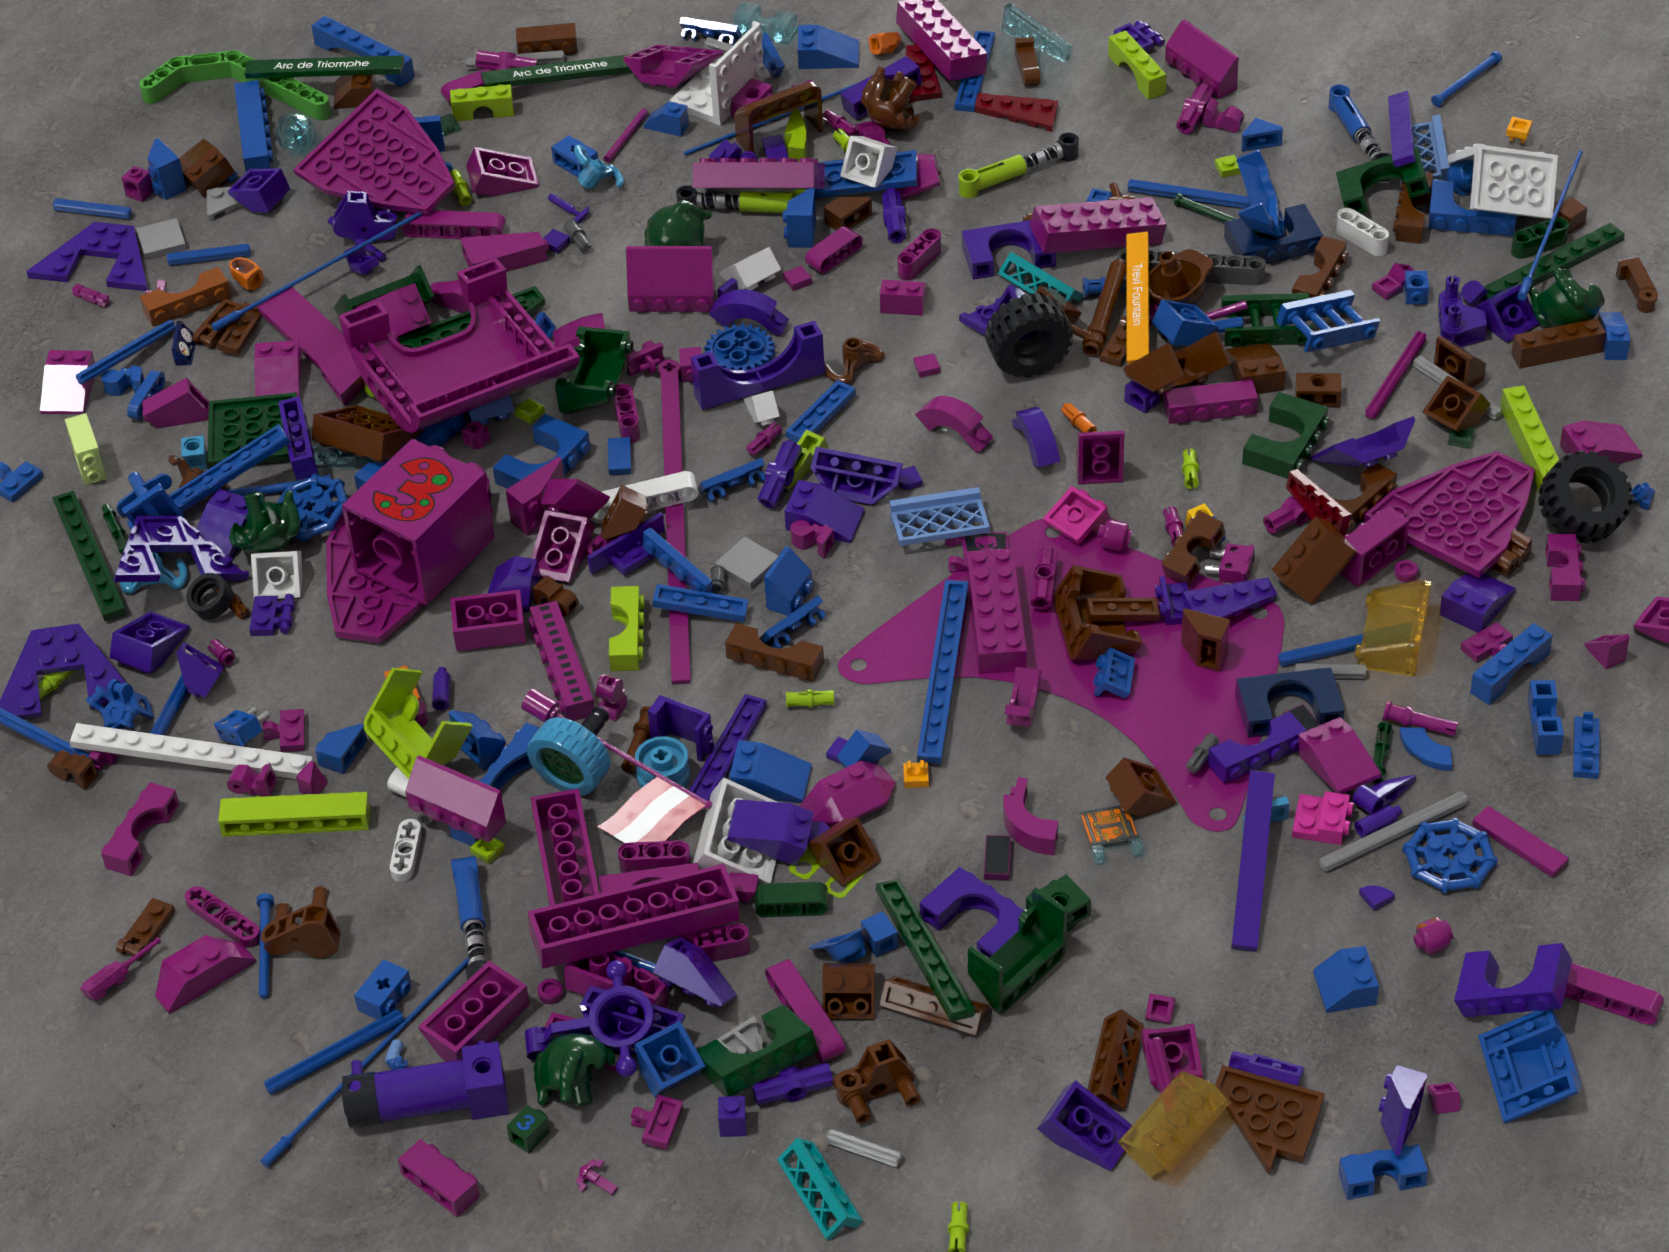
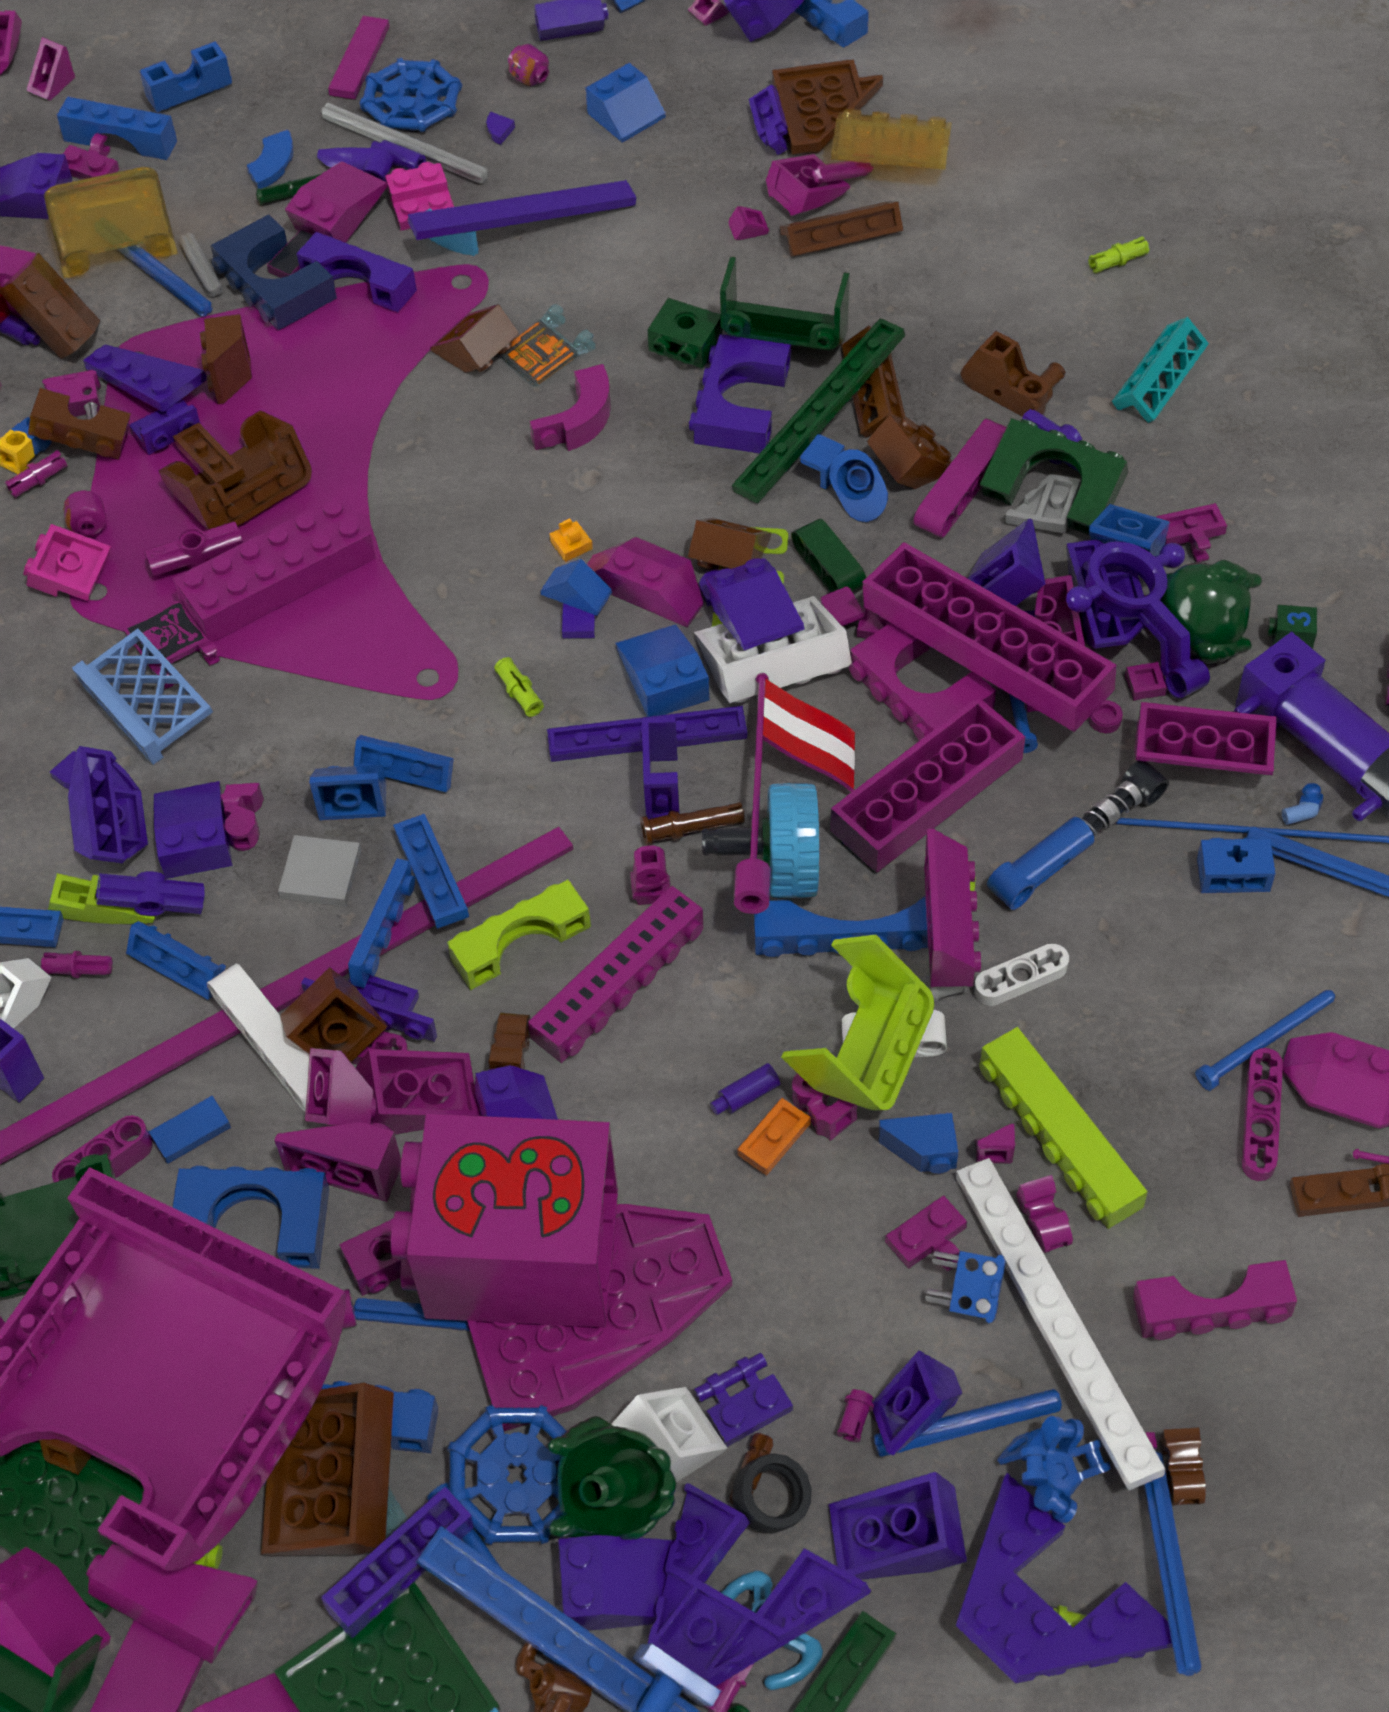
camera: 120 degrees left, 10 degrees up
(315, 936) = (1234, 977): reddish brown piece -> none
(482, 743) = (809, 984): blue slope -> none
(488, 620) = (605, 1085): magenta brick -> none
(588, 1173) = (1296, 557): magenta piece -> none
(652, 855) = (861, 709): magenta beam -> none
(666, 757) = (724, 764): dark azure wheel -> none
(717, 577) = (370, 882): dark grey pin -> none
(732, 1116) = (1144, 466): dark purple brick -> none
(799, 661) = (471, 785): reddish brown arch -> none
(864, 1147) = (1086, 361): light grey axle -> none
(942, 672) = (396, 581): blue plate -> none
(997, 857) = (643, 421): black tile -> none
(1024, 697) = (408, 487): magenta arch -> none
(1085, 1126) = (936, 213): dark purple slope -> none
(1114, 673) = (321, 428): blue bracket -> none
(1201, 753) = (390, 312): dark grey axle -> none
(1408, 716) = (236, 181): magenta pin -> none
(1586, 746) = (180, 57): blue plate -> none

